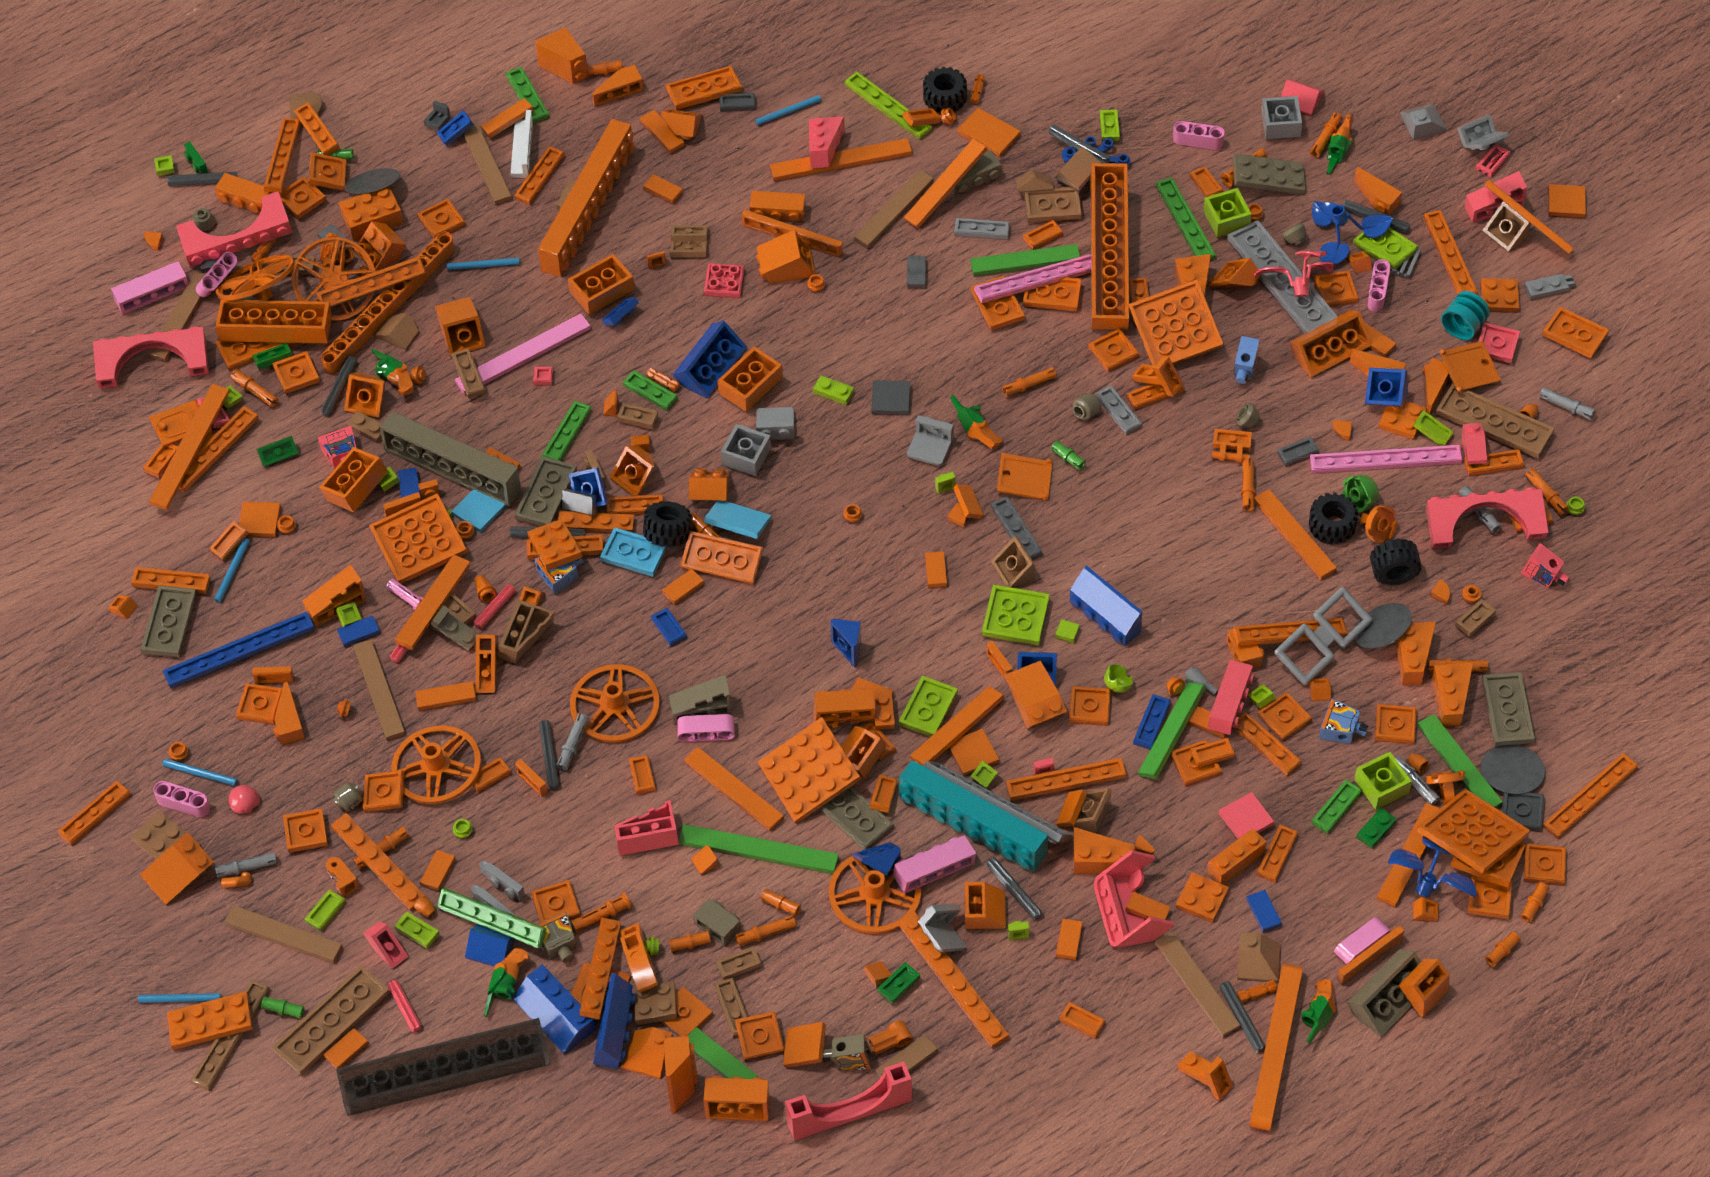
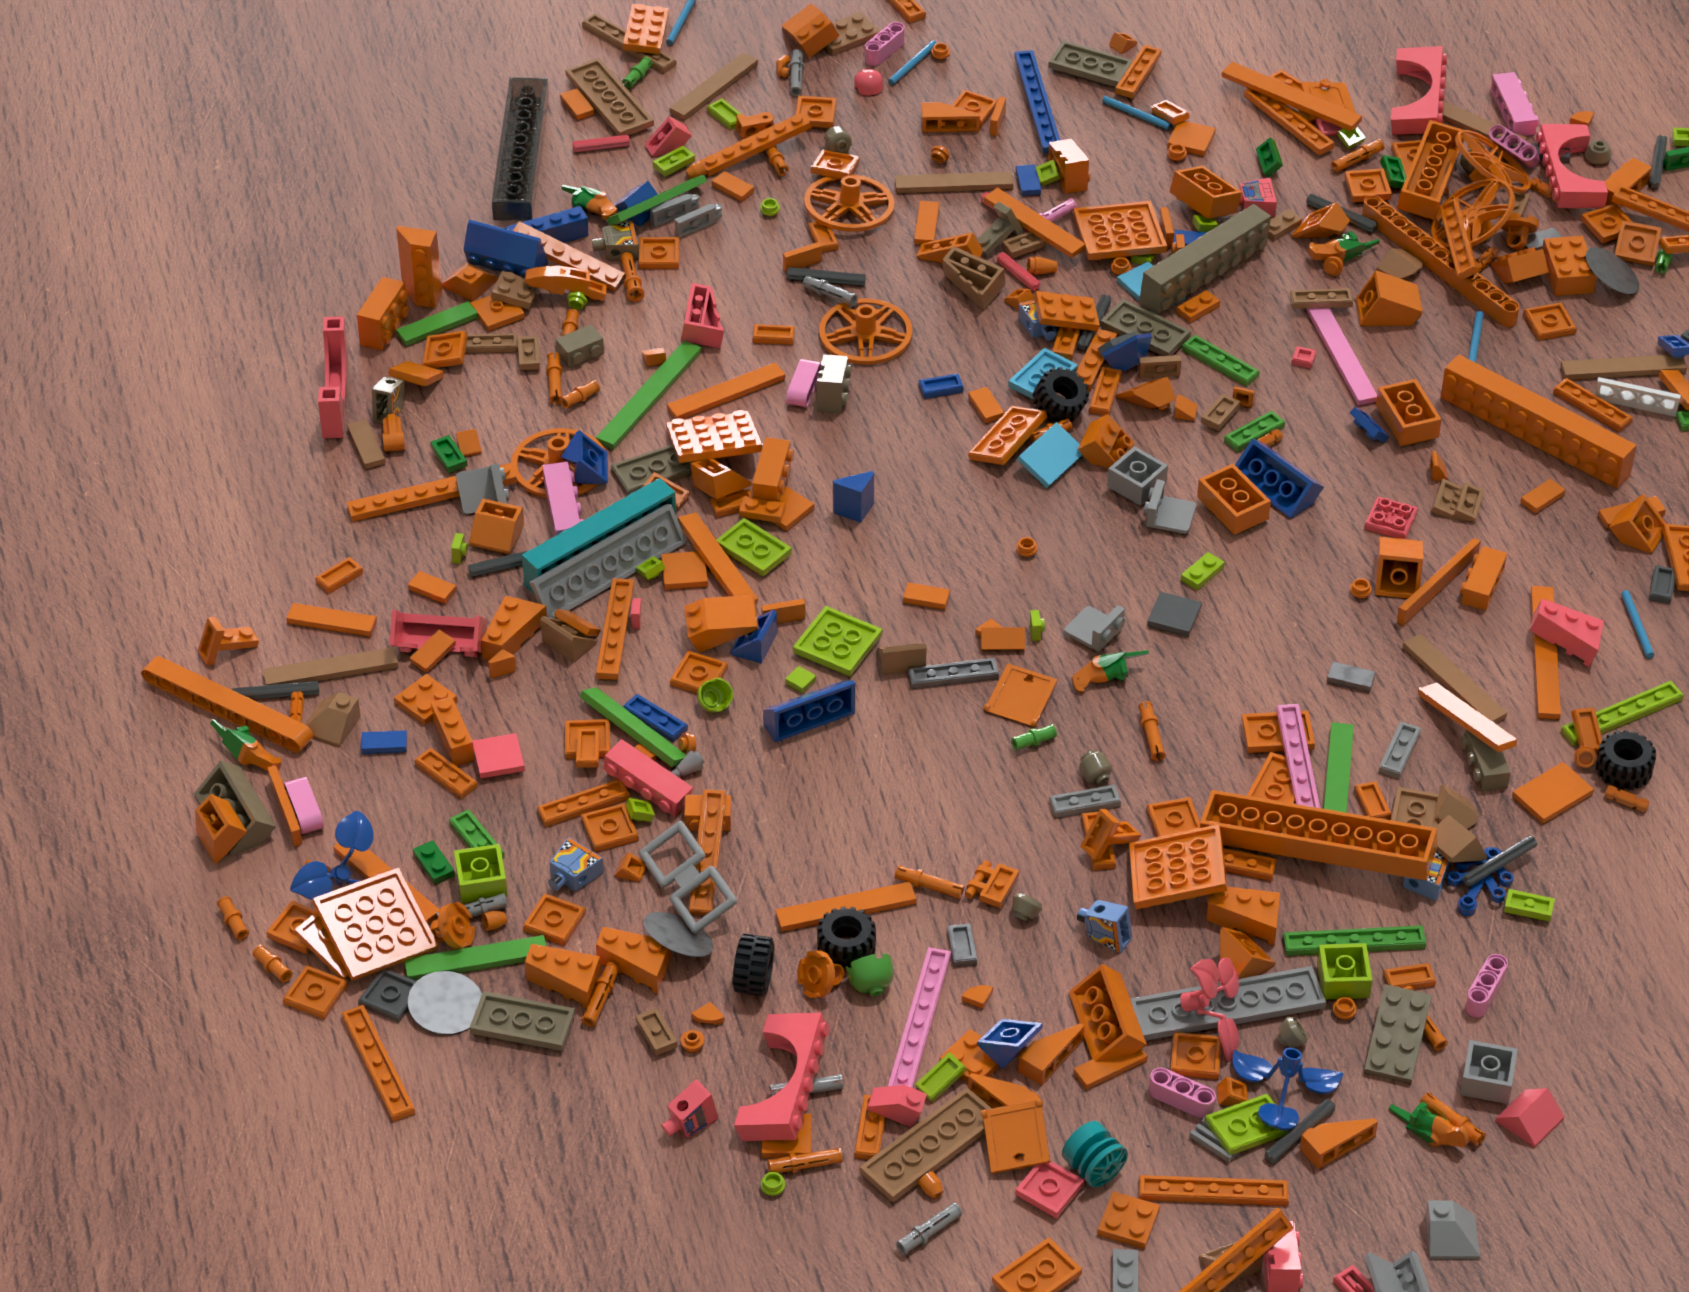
camera: 105 degrees right, 10 degrees down
(1139, 1005) = (331, 619): none -> orange tile

